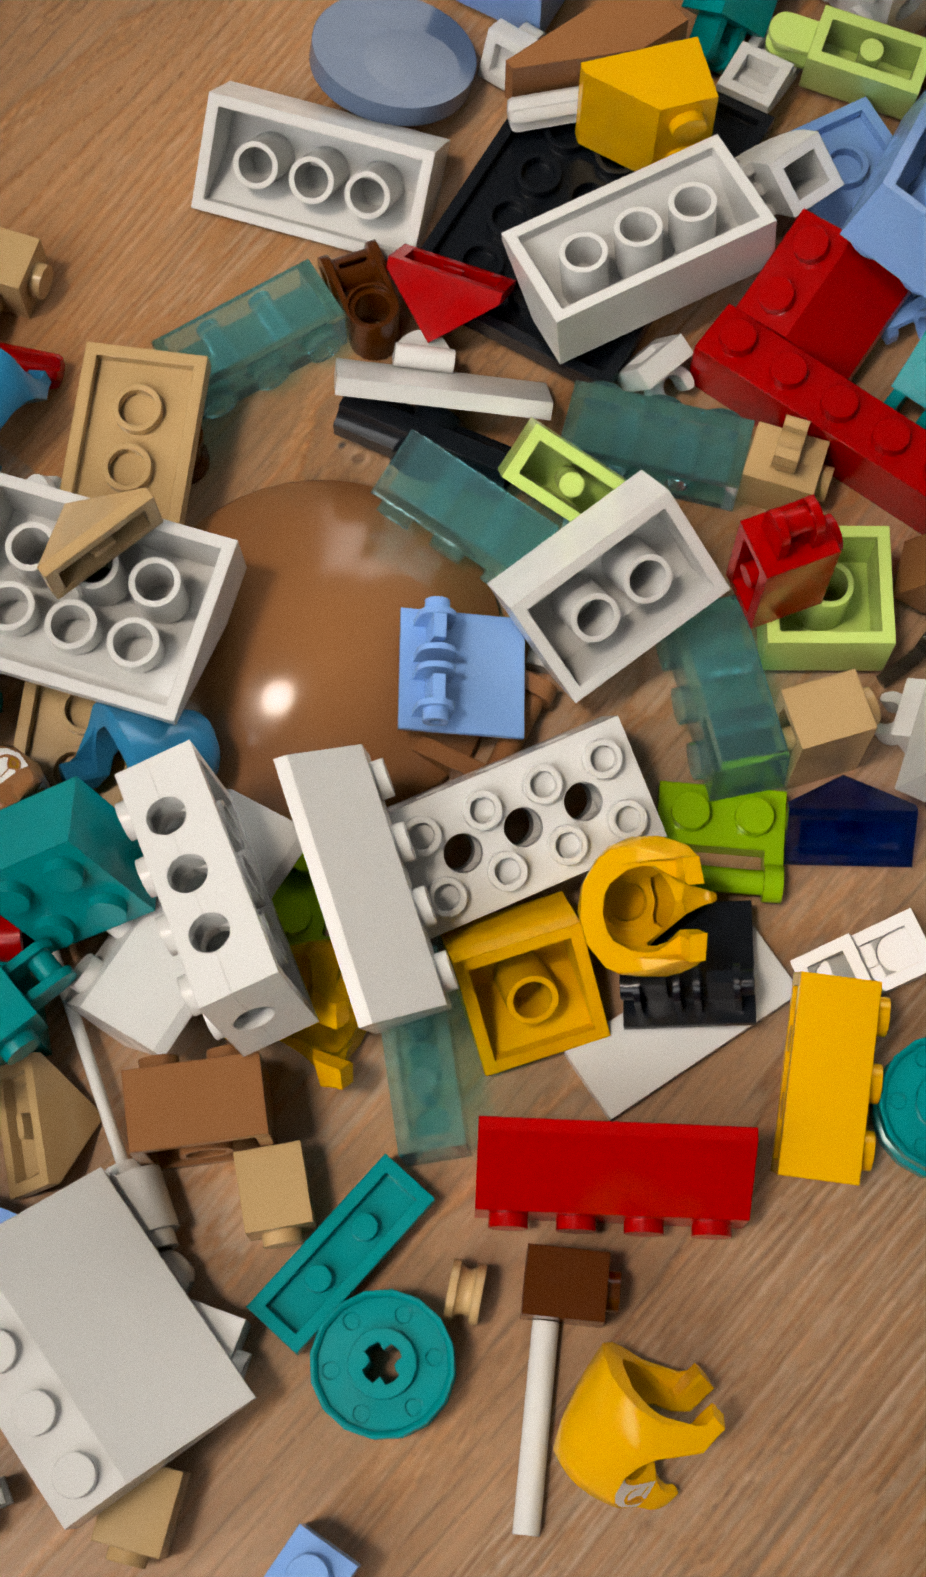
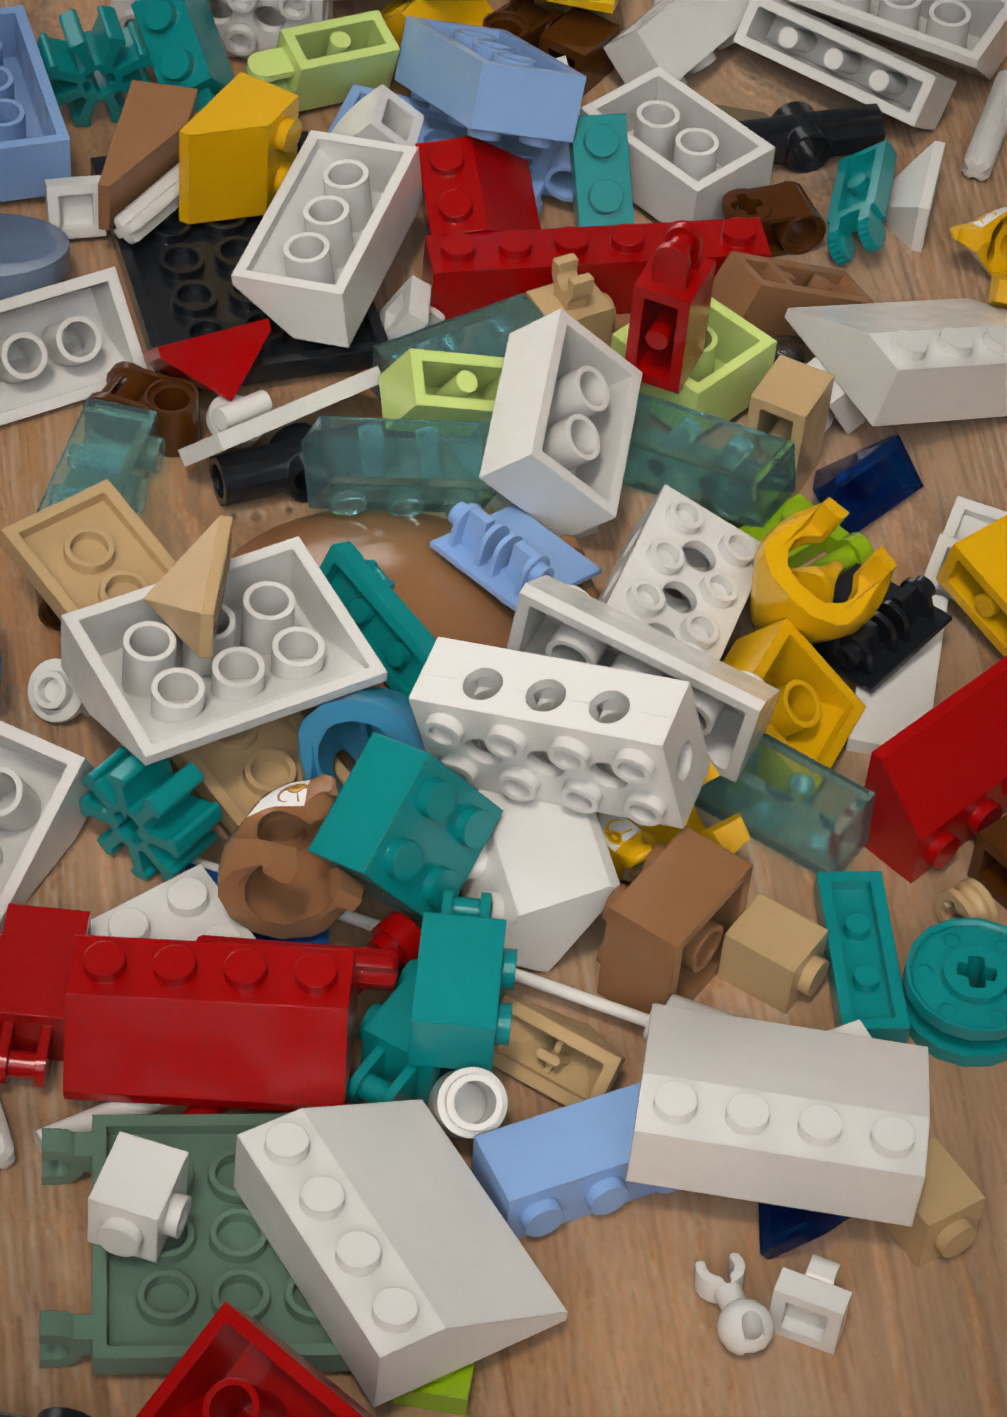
camera: 50 degrees left, 25 degrees down
(276, 609) = (380, 614): none -> teal hinge

